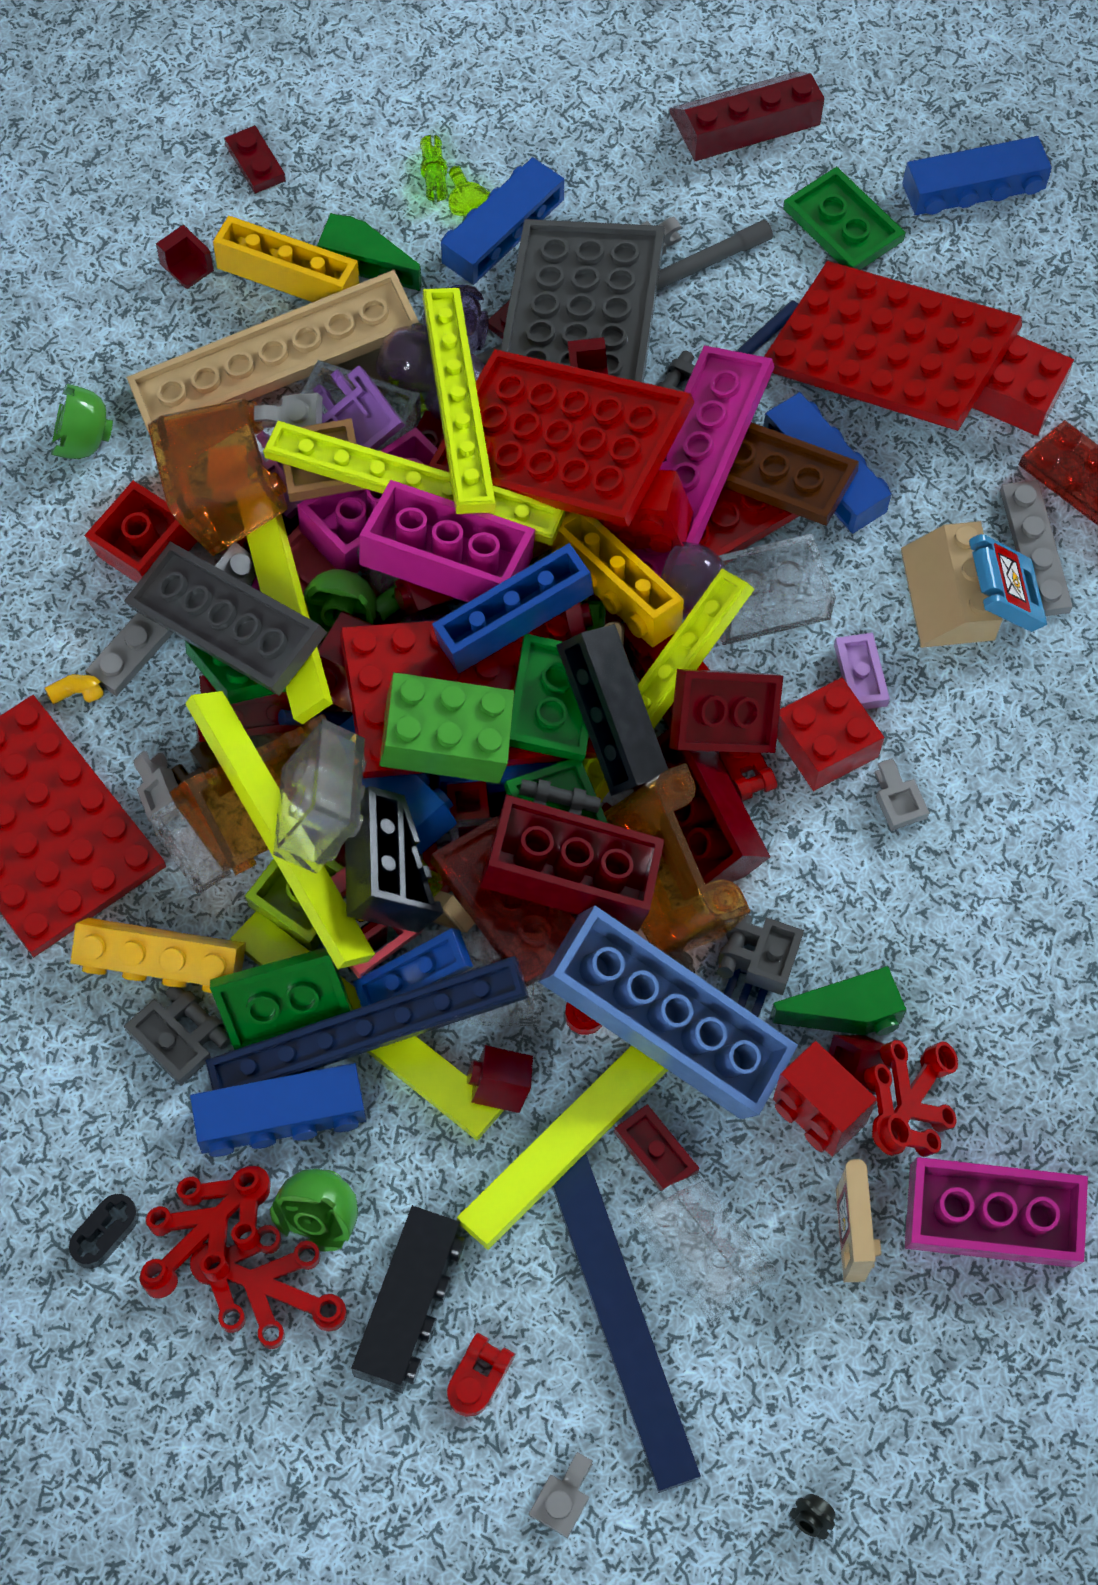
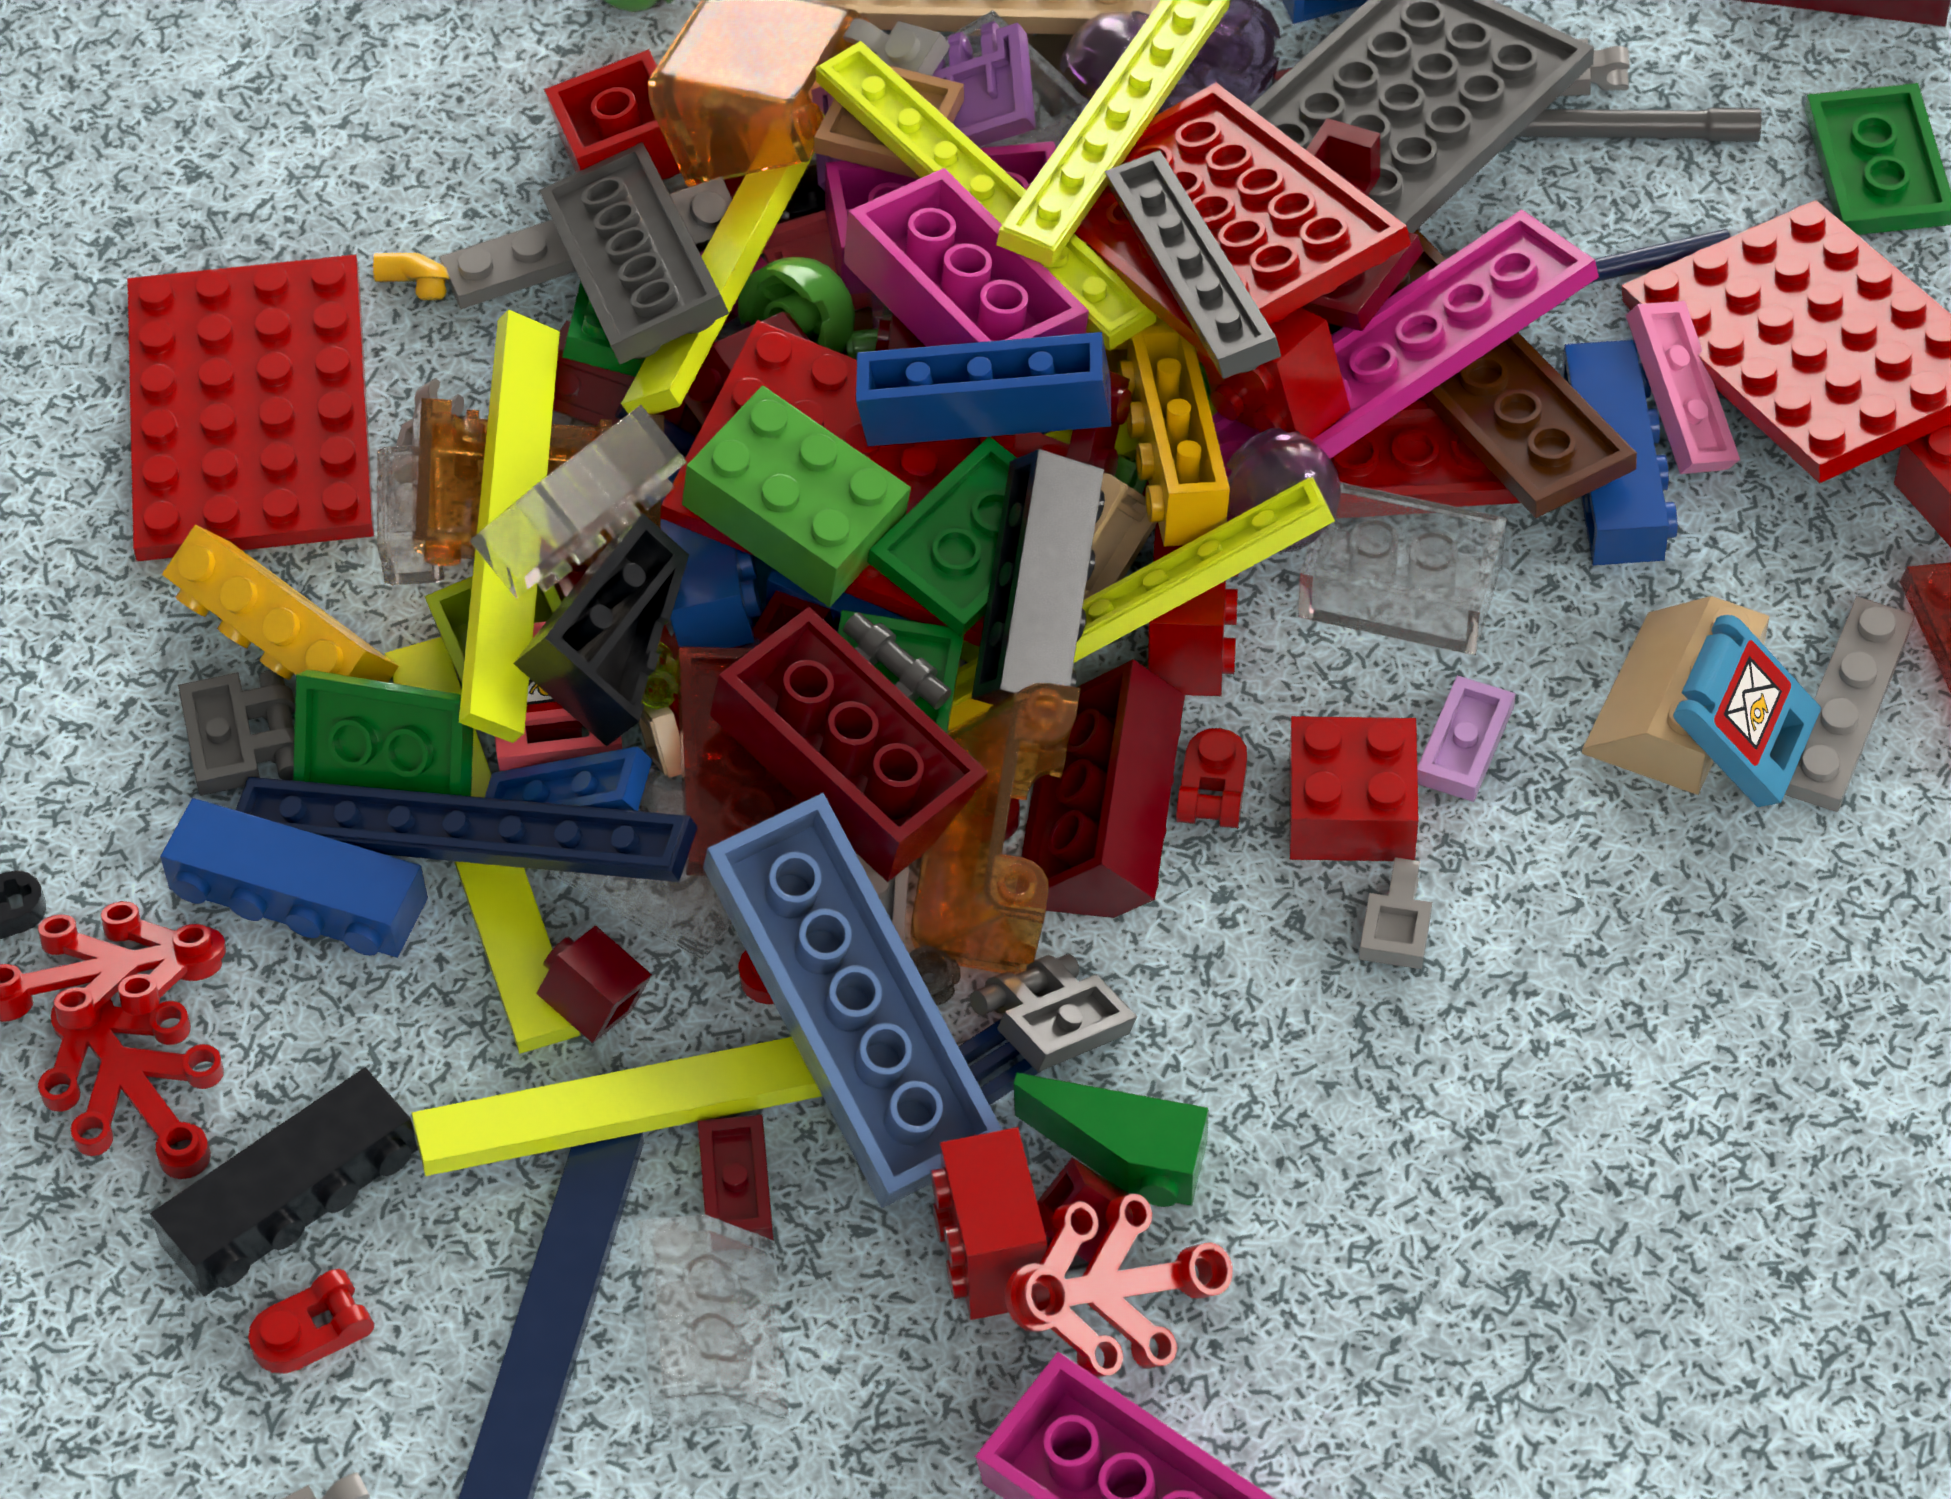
camera: 35 degrees right, 10 degrees down
(317, 1207) = (254, 1002): bright green cylinder -> none
(586, 474) = (1193, 265): none -> plate
(726, 711) = (1208, 673): dark red plate -> none
(839, 407) = (1682, 387): none -> bright pink plate
(855, 1223) = (919, 1395): tan container -> none

